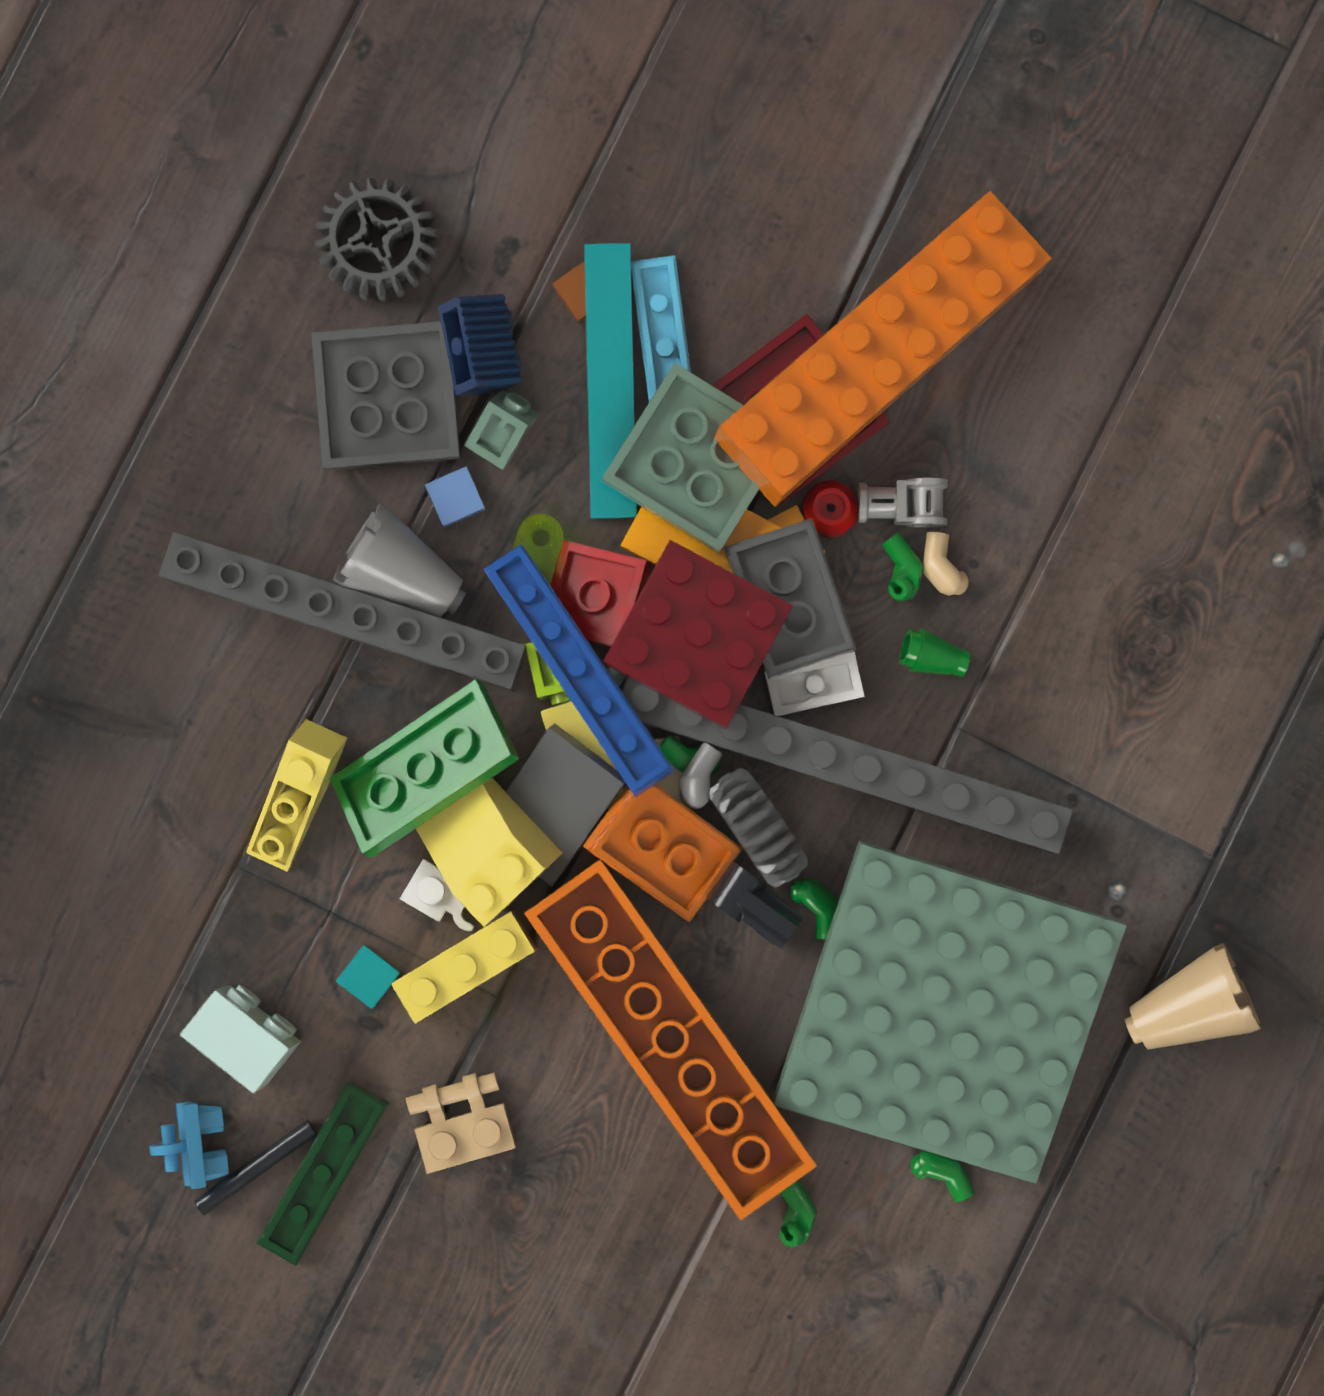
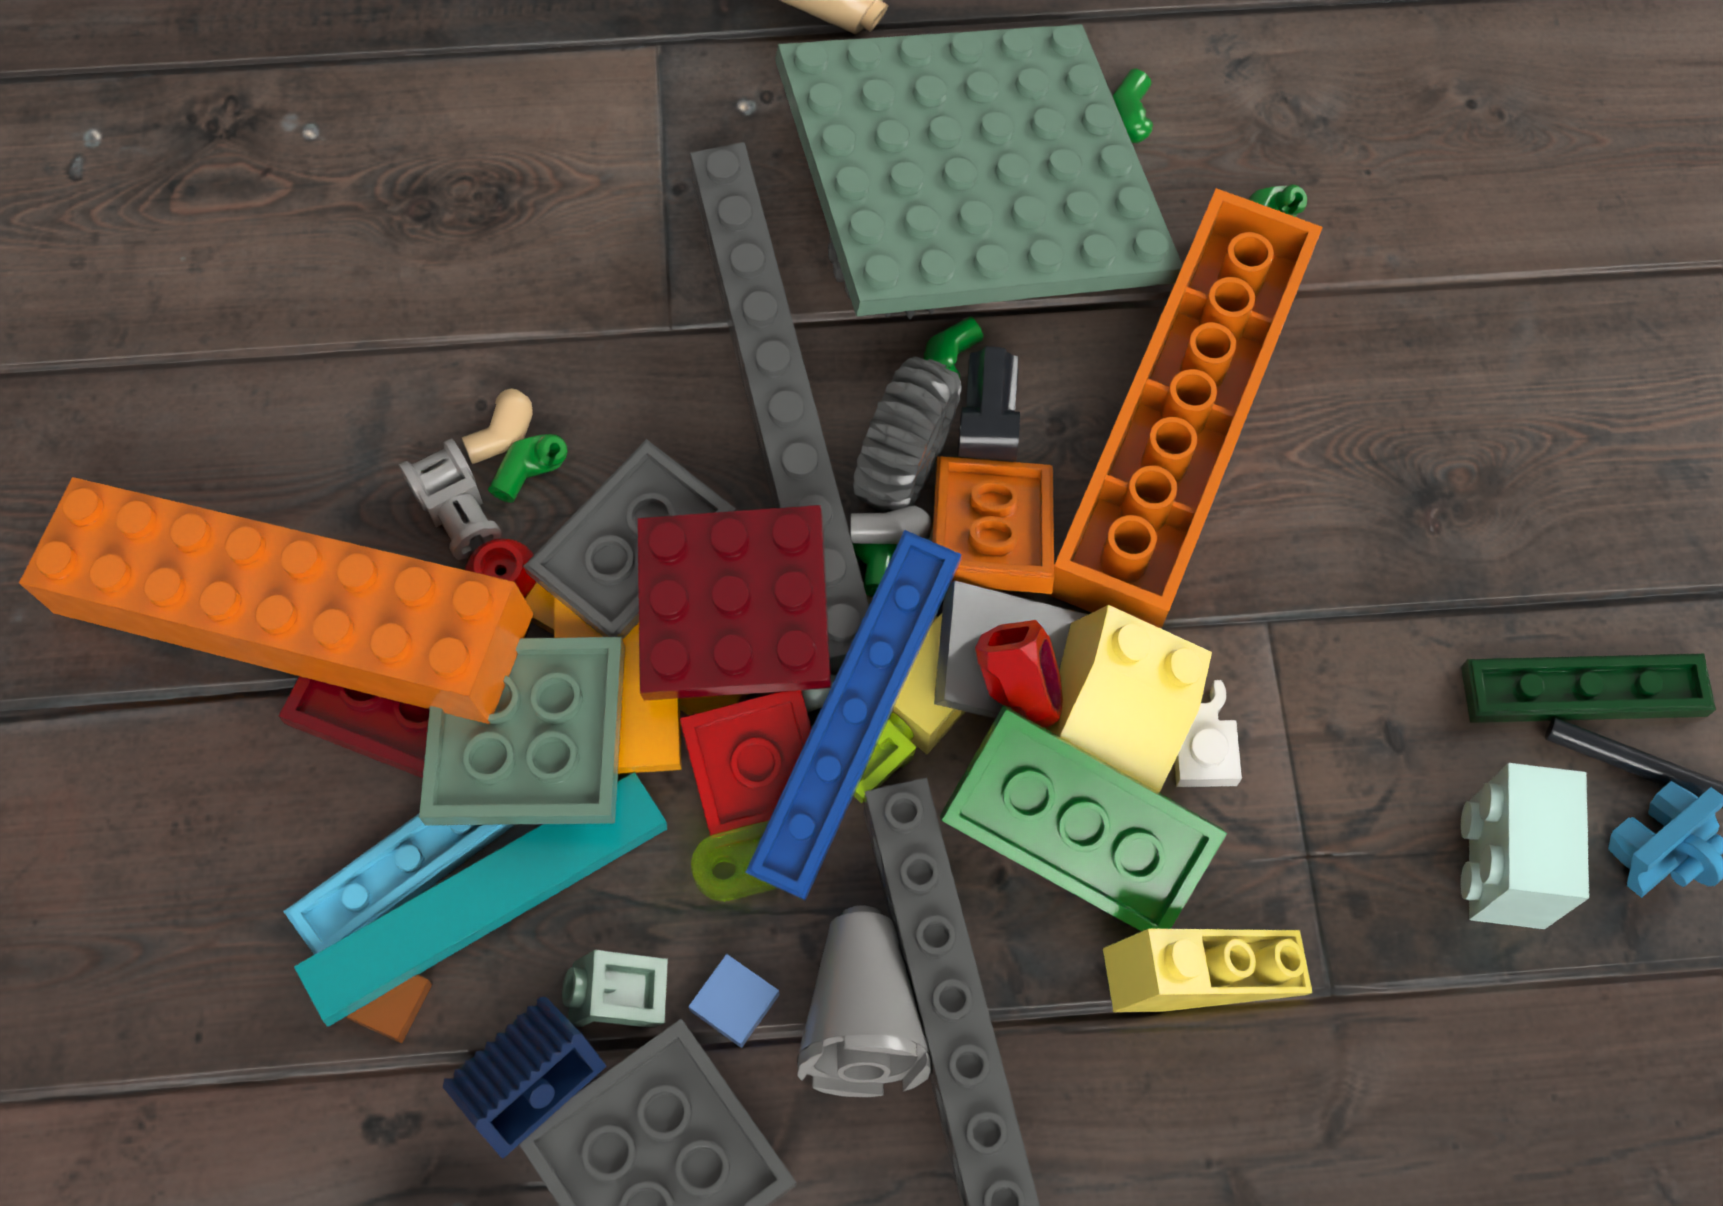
camera: 125 degrees left, 20 degrees down
(368, 976) = (1348, 765): teal tile -> none
(464, 966) = (1272, 660): light yellow brick -> none
(464, 1136) = (1436, 564): tan plate -> none
(538, 788) = (1022, 670): none -> red rock
(816, 685) = (717, 468): white plate -> none
(931, 654) = (607, 387): green cone -> none

